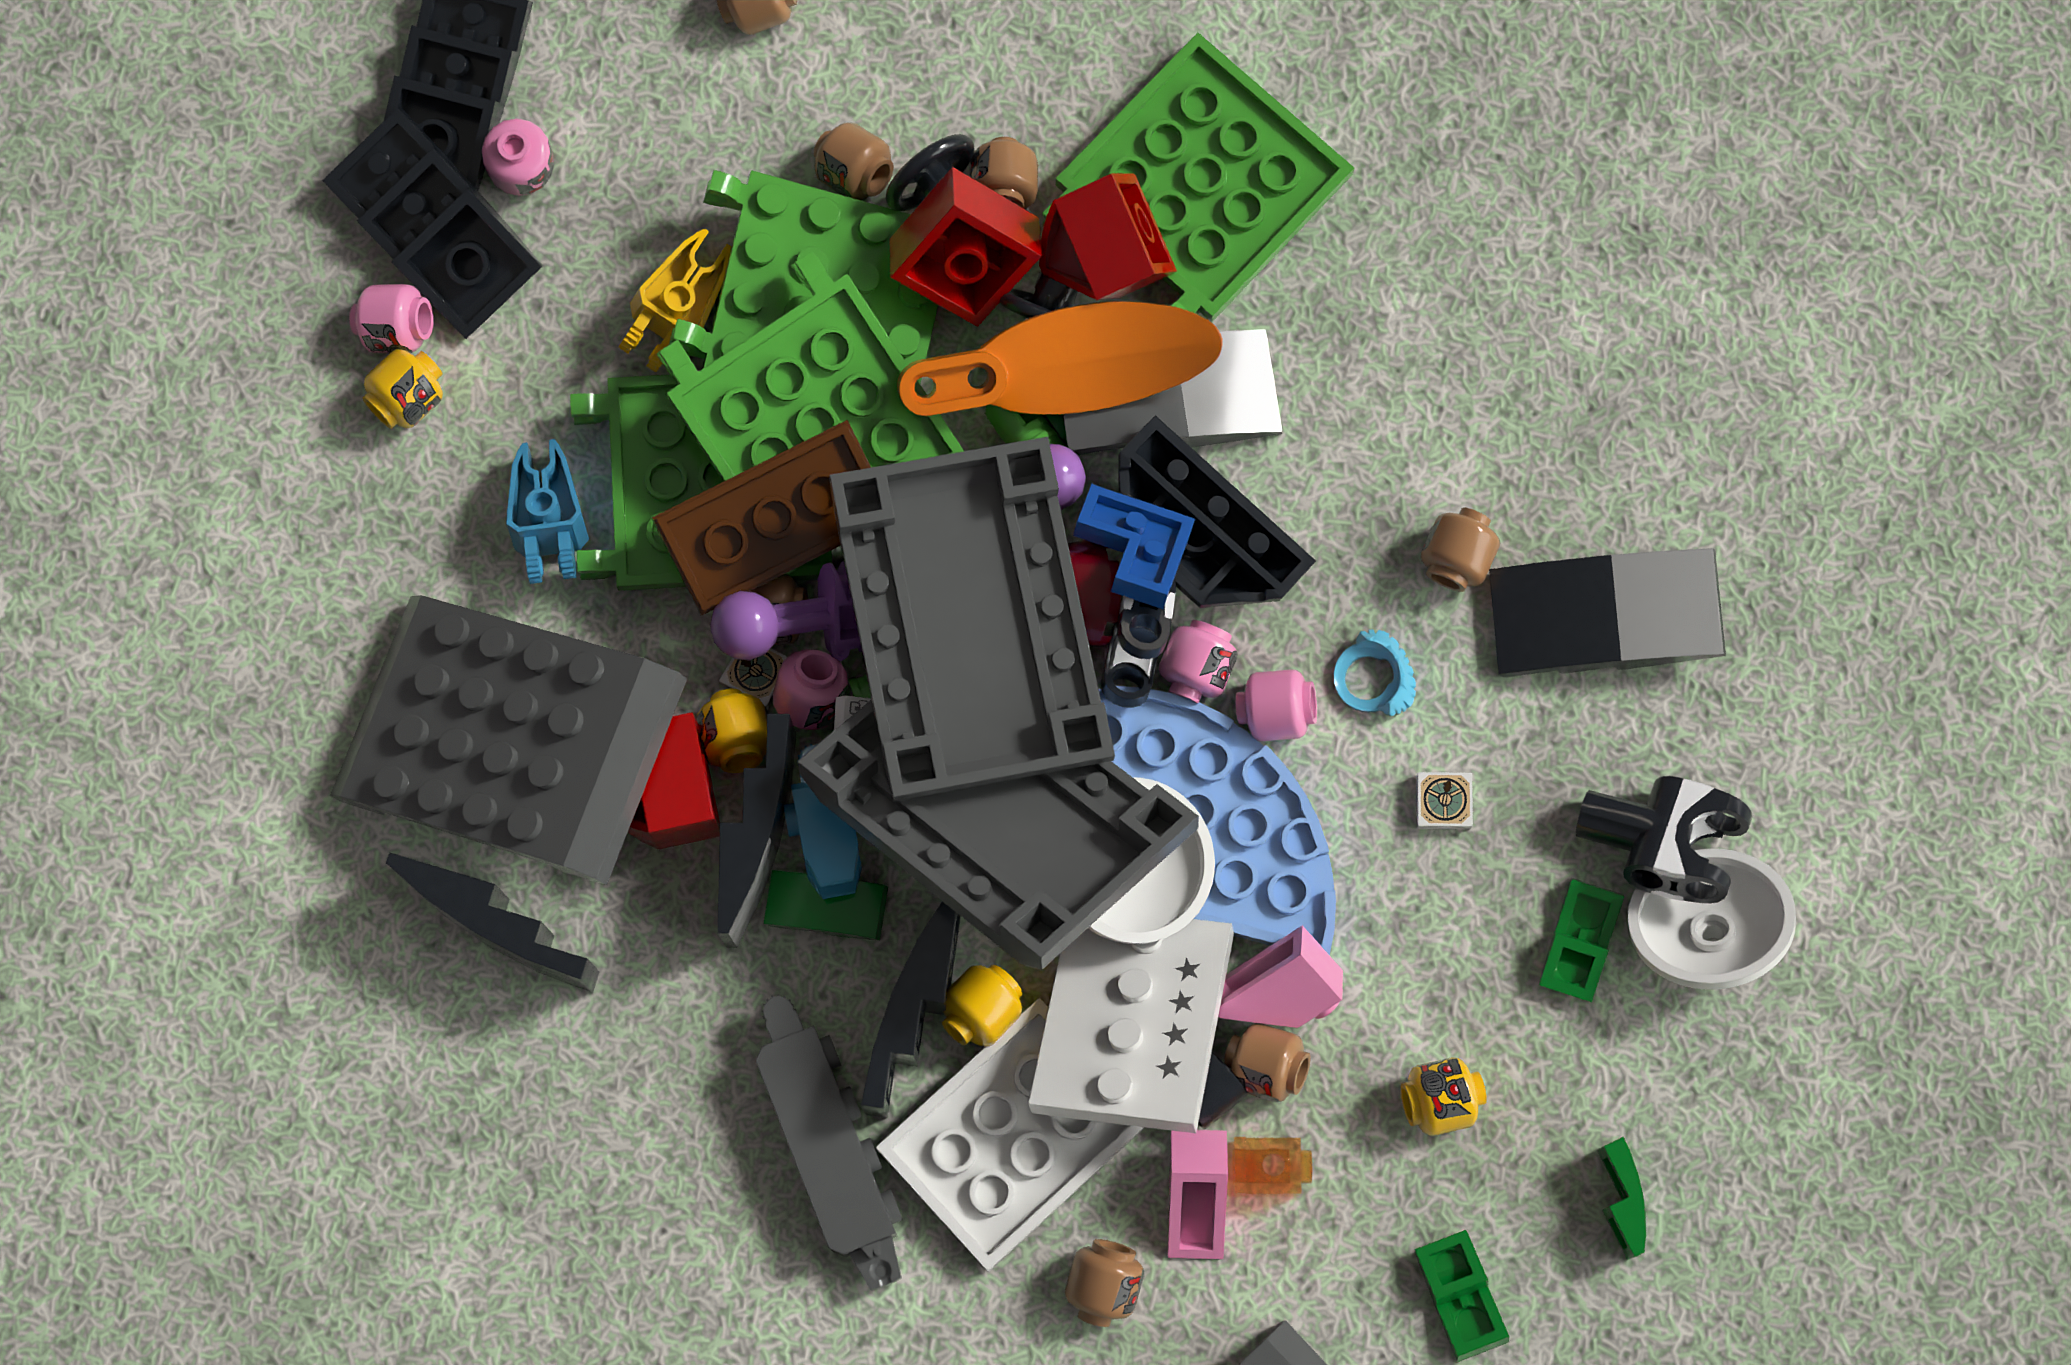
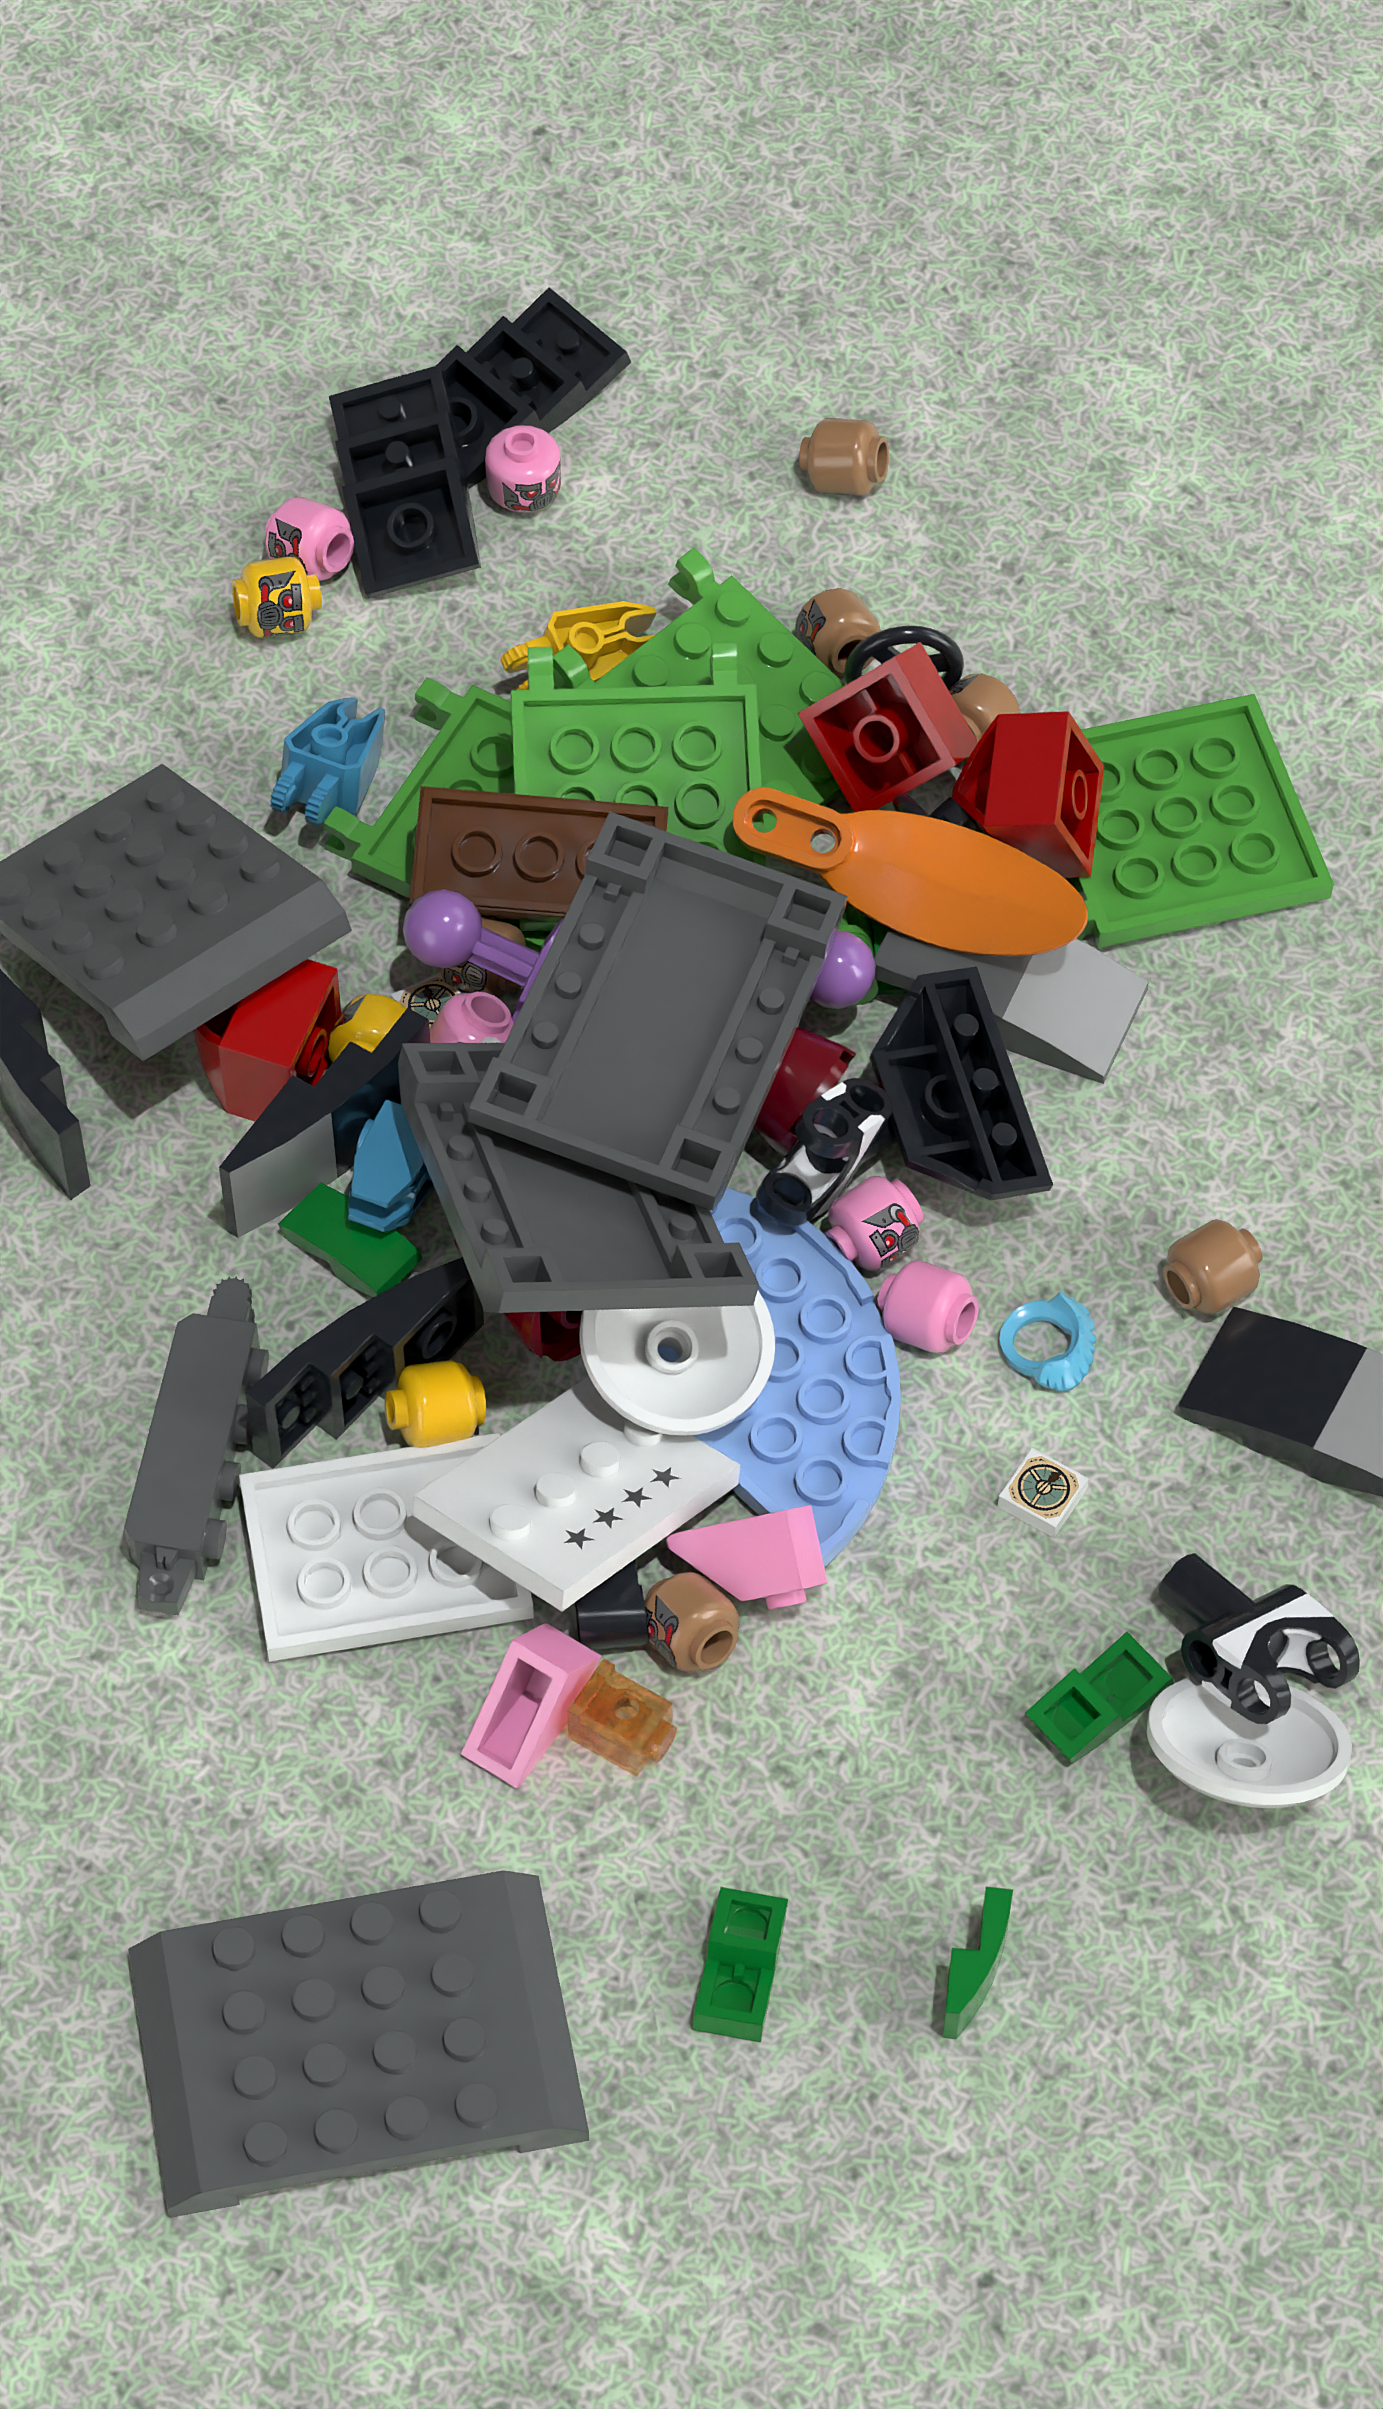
camera: 30 degrees right, 20 degrees down
(1104, 1282) = (377, 1729): medium nougat head -> none
(1145, 533) = (880, 1052): blue plate -> none
(1442, 1096) = (849, 1753): yellow head -> none

